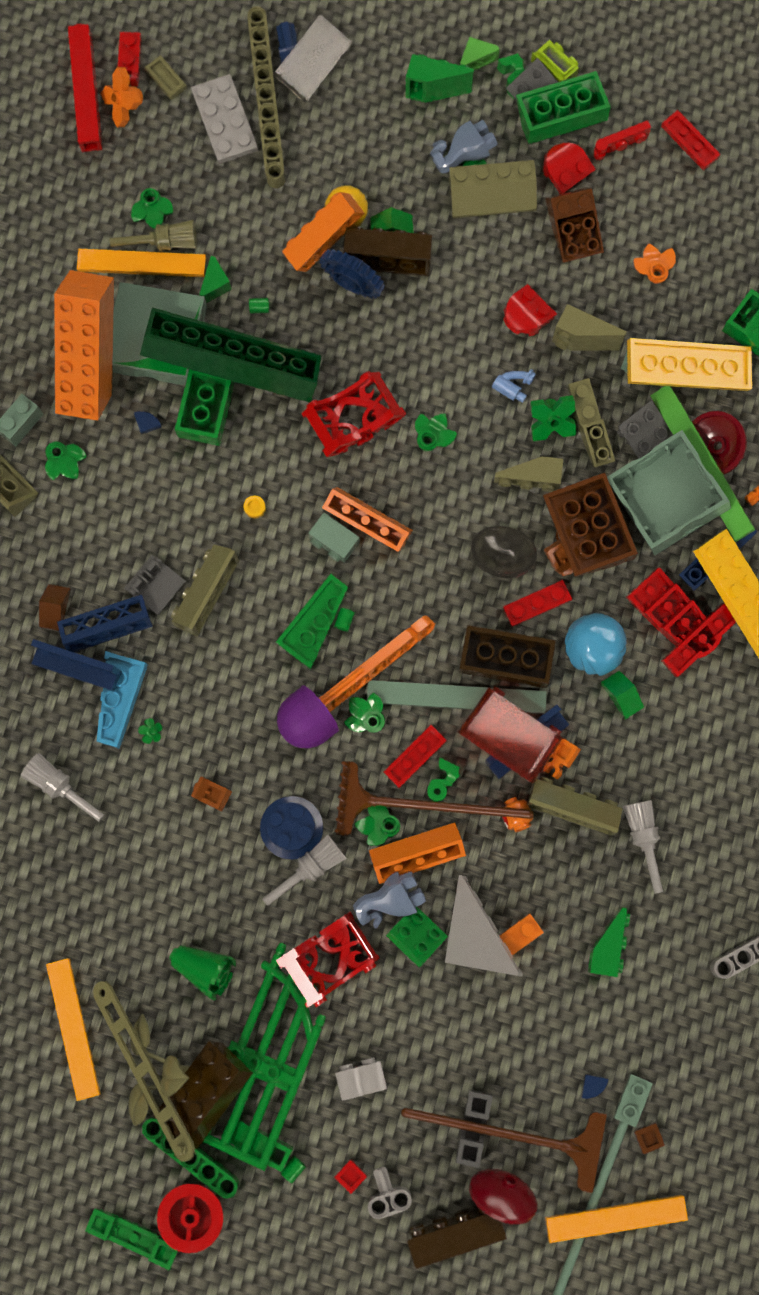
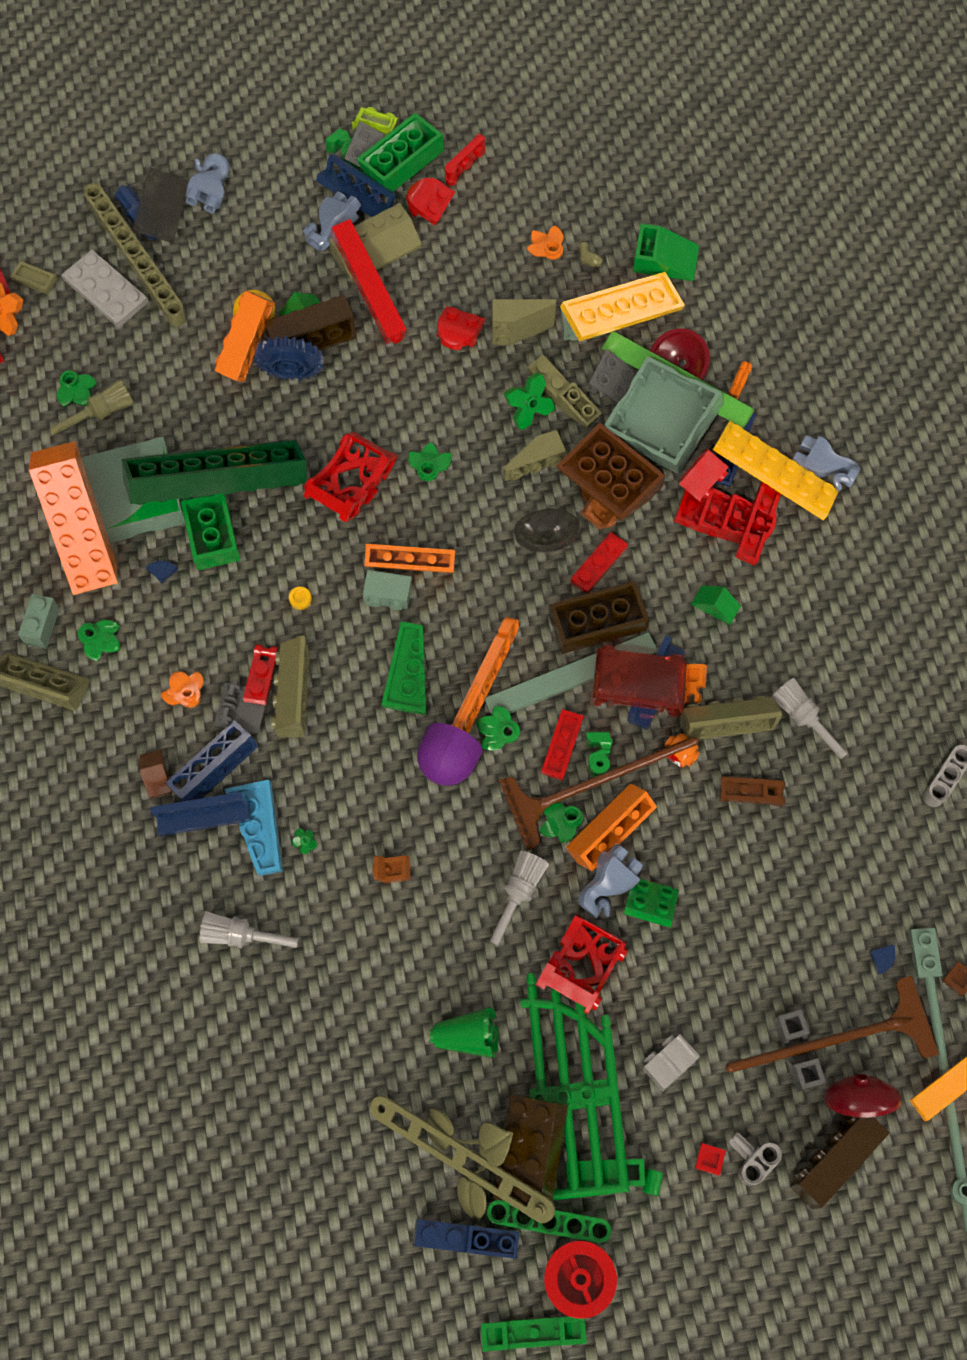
camera: 30 degrees left, 10 degrees down
(73, 1029) = (370, 1159): light orange tile -> none
(114, 539) = (182, 687): none -> orange plate
(117, 1135) = (466, 1239): none -> dark blue slope
(141, 263) = (101, 432): light orange tile -> none
(185, 563) = (260, 675): none -> red plate
(214, 282) = (166, 421): green slope -> none
(258, 305) = (216, 426): green hinge -> none
(291, 827) = (482, 864): dark blue piece -> none
(344, 619) = (434, 656): green hinge -> none
(366, 56) = (207, 183): none -> sand blue hips
(436, 79) = (281, 176): green slope -> none
(463, 229) = (368, 282): none -> red brick
(474, 936) = (705, 876): light grey tile -> none
(479, 53) = (305, 145): bright green slope -> none
(492, 114) = (370, 203): none -> dark blue fence
(509, 389) = (478, 397): medium blue plant -> none
(521, 933) = (742, 857): orange brick -> none
(559, 881) = (751, 791): none -> reddish brown plate
(575, 224) = (461, 240): reddish brown slope -> none
(595, 644) = (670, 570): dark azure piece -> none
(607, 950) = (828, 831): green slope -> none
(672, 570) = (703, 475): none -> brick
(686, 295) = (587, 257): none -> olive arm
(690, 140) = (522, 136): red plate -> none

